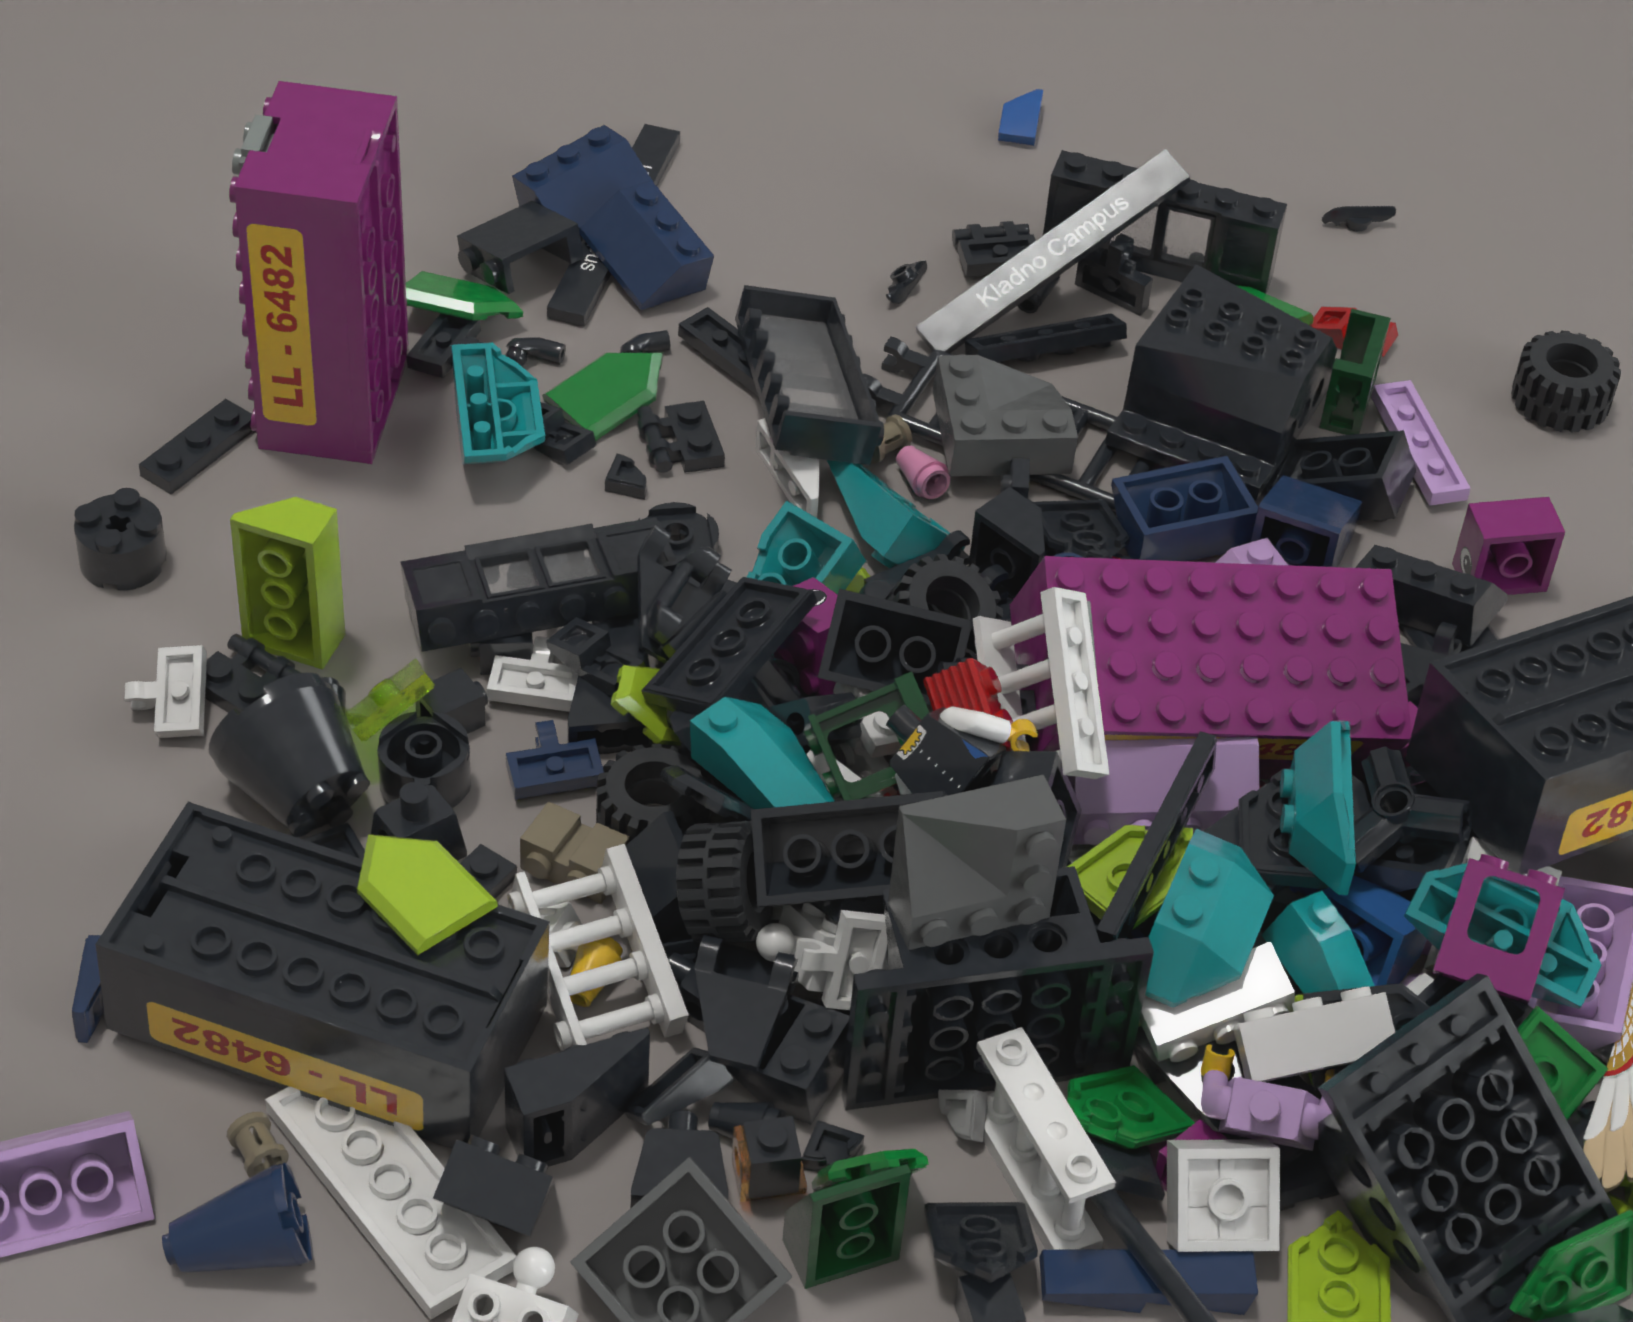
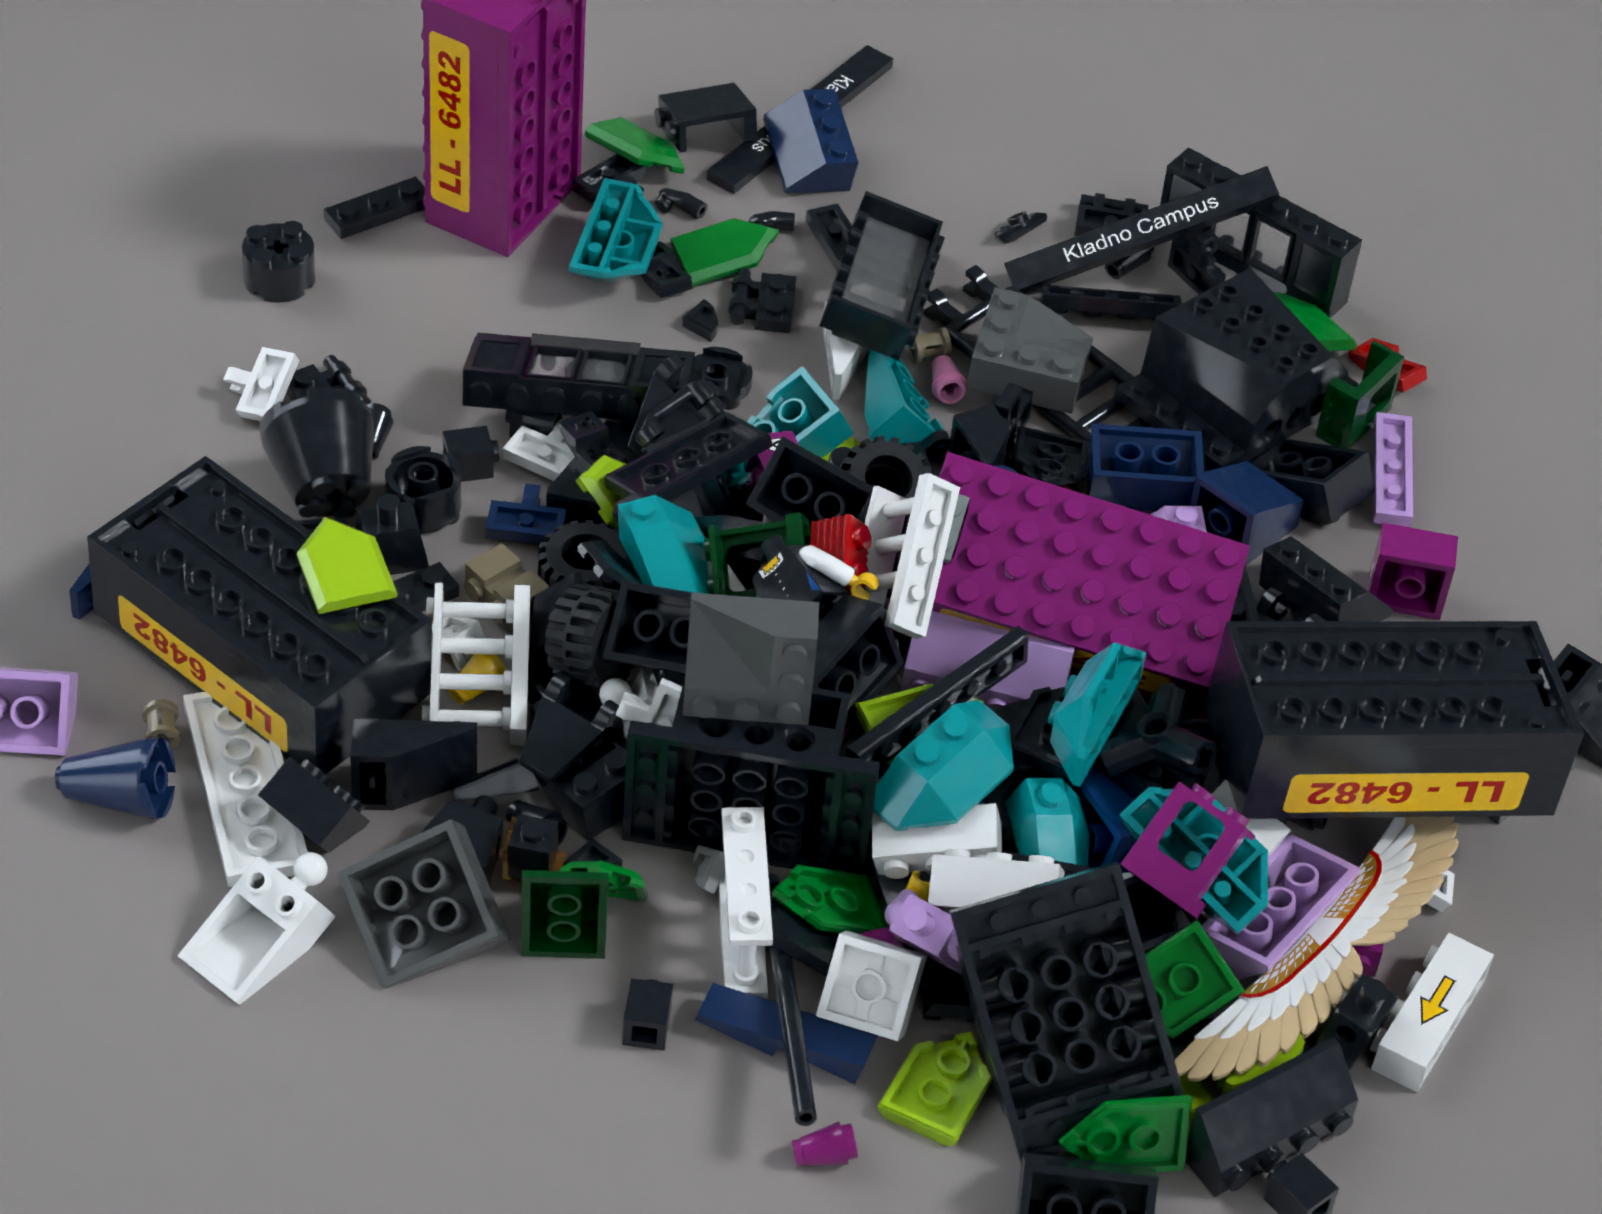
camera: 20 degrees right, 0 degrees up
(290, 579) = (379, 320): lime slope -> none
(389, 700) = (417, 431): clear neon green plate -> none
(581, 175) = (782, 71): dark blue slope -> none
(981, 1237) = (666, 957): black tile -> none
(1021, 118) = (1193, 117): blue slope -> none
(1358, 217) = (1450, 273): black piece -> none
(1566, 381) = (1551, 453): black tyre -> none

